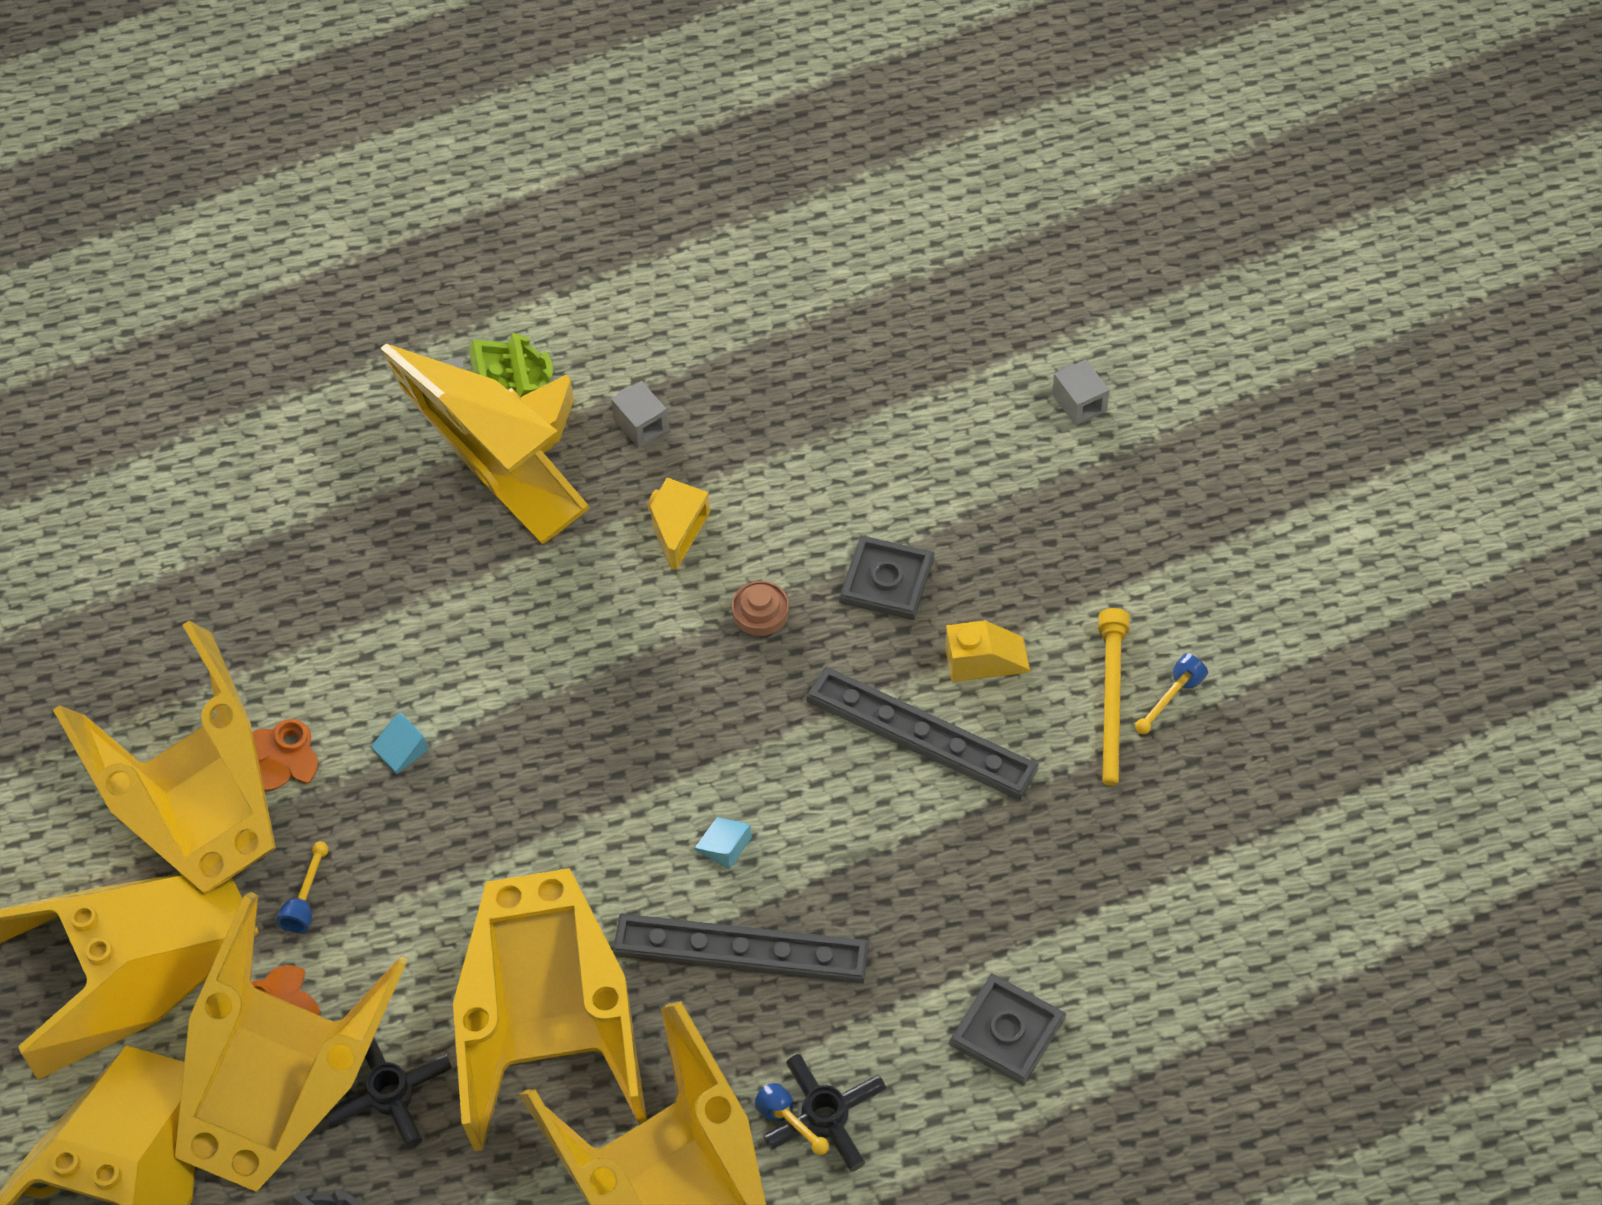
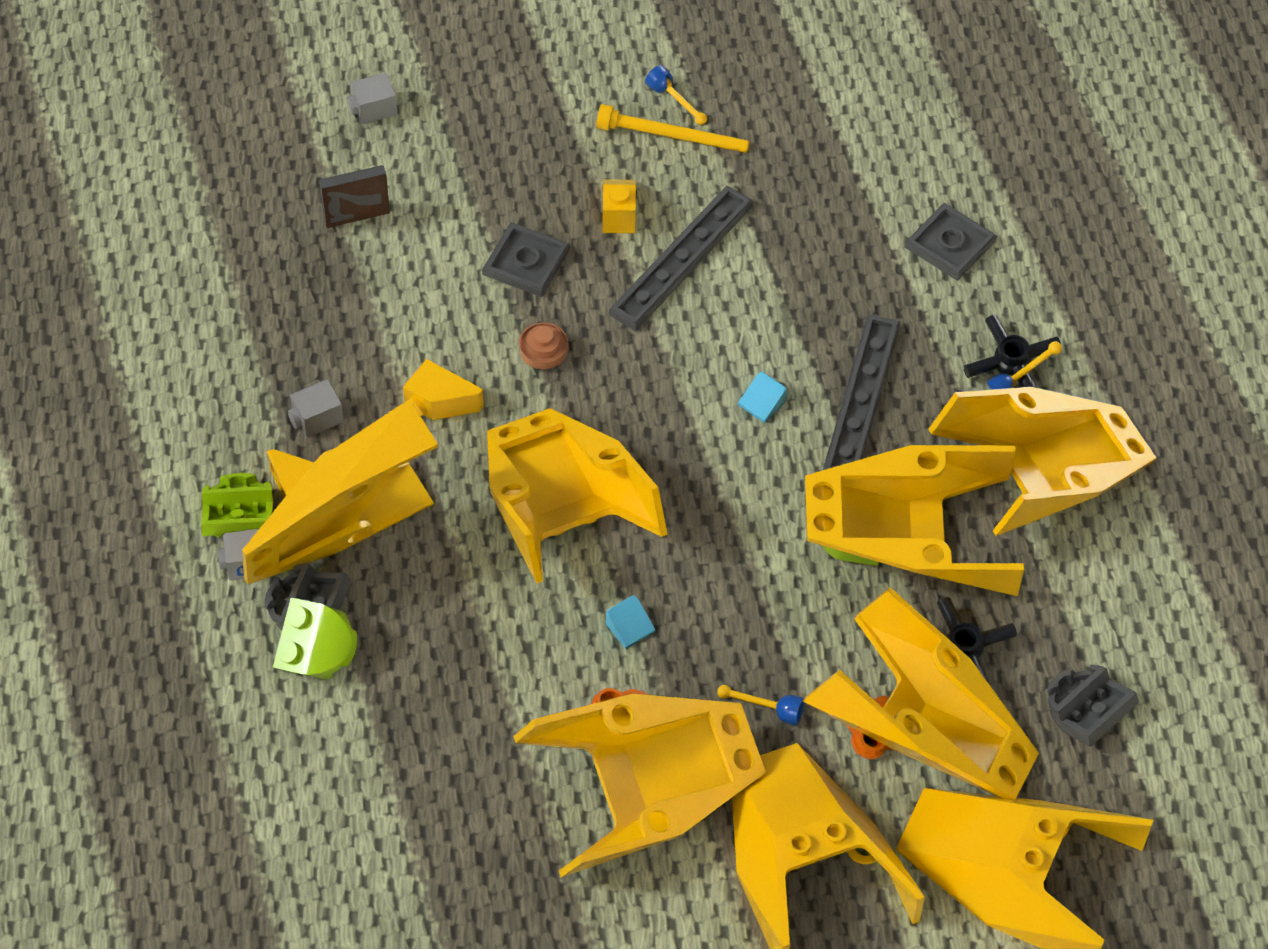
camera: 85 degrees left, 0 degrees up
(344, 457) = (315, 640): none -> lime slope
(397, 449) = (307, 585): none -> dark grey slope
(553, 628) = (564, 474): none -> yellow windscreen
(920, 390) = (354, 196): none -> tile

